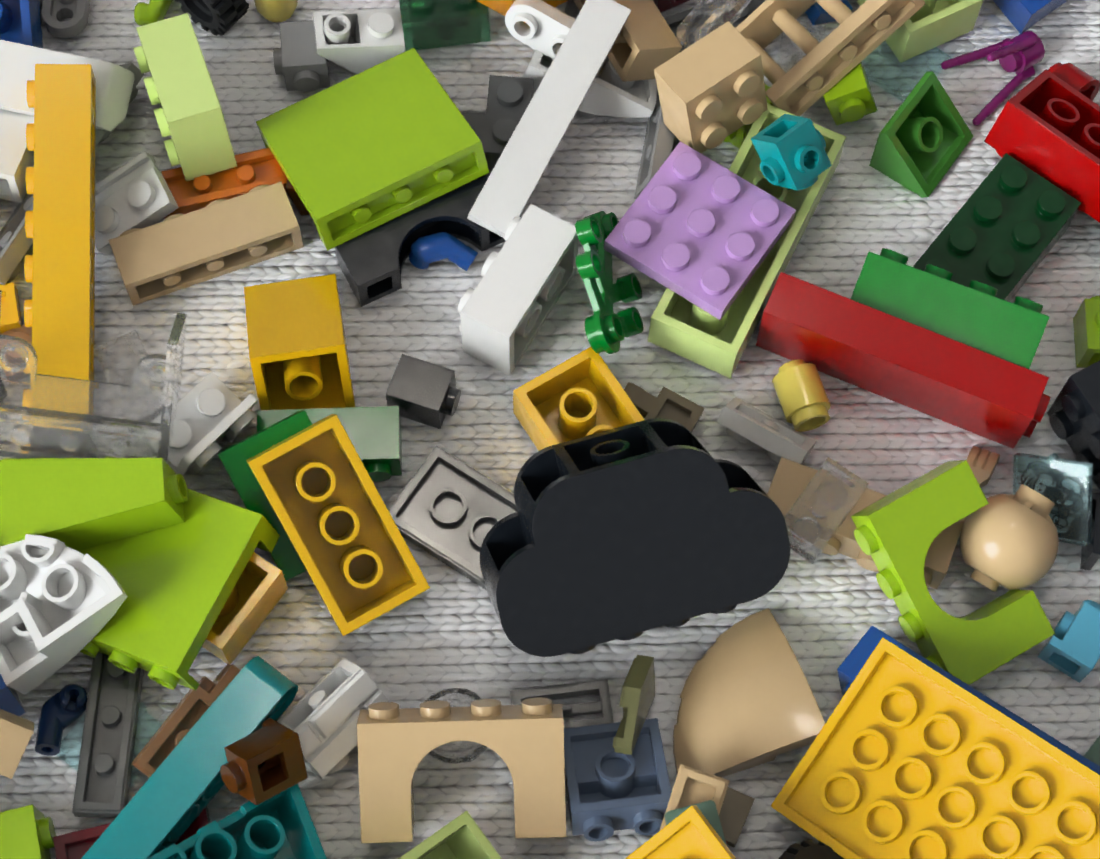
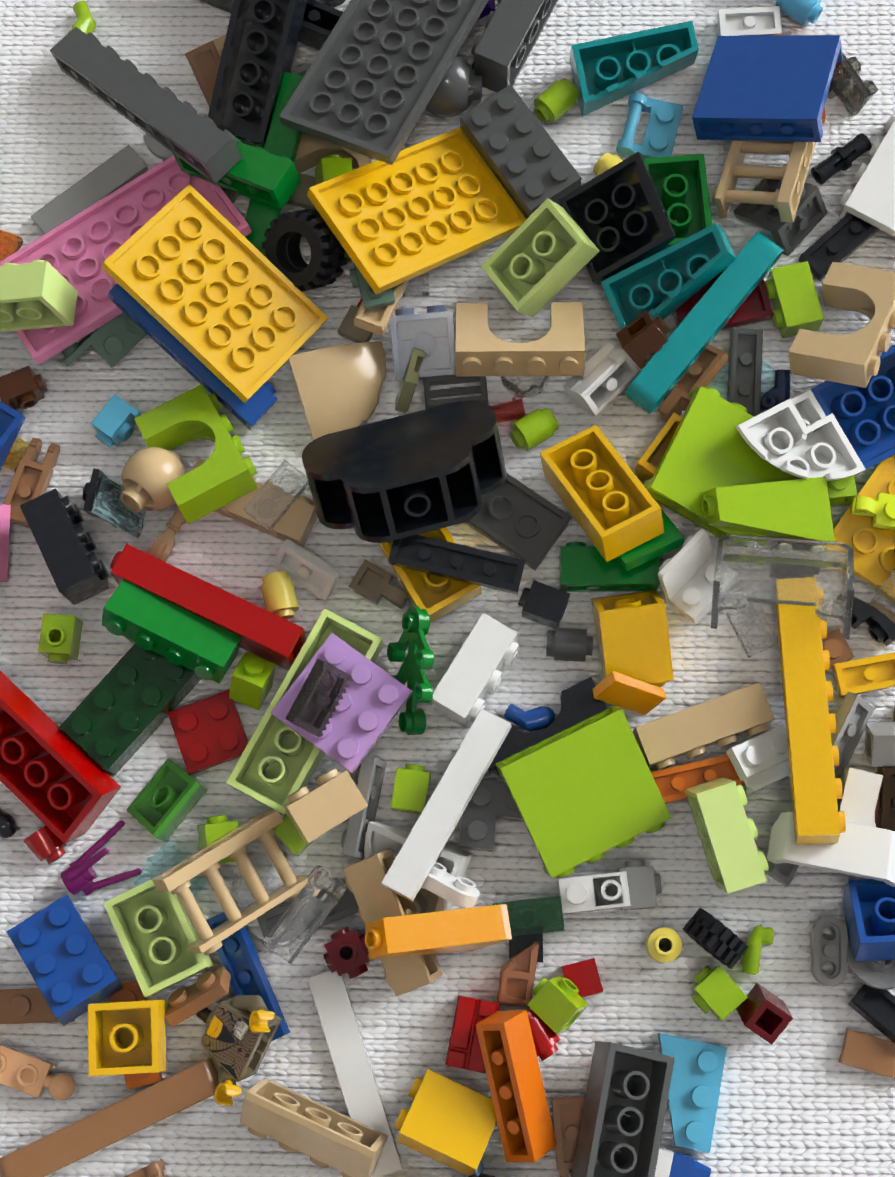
camera: 170 degrees left, 10 degrees up
(306, 267) = (629, 693): none -> light orange tile
(386, 340) = (569, 644): none -> dark grey brick
(440, 645) = (533, 429): none -> lime brick
(480, 673) = (509, 410): none -> clear red pin
(539, 406) = (458, 562): none -> black plate
(599, 156) = (410, 789): none -> lime brick
(731, 199) = (318, 697): none -> clear smoke brick
(791, 152) = (269, 751): teal brick -> none
(828, 271) = (252, 680): none -> lime brick
(875, 219) = (208, 732): none -> red plate

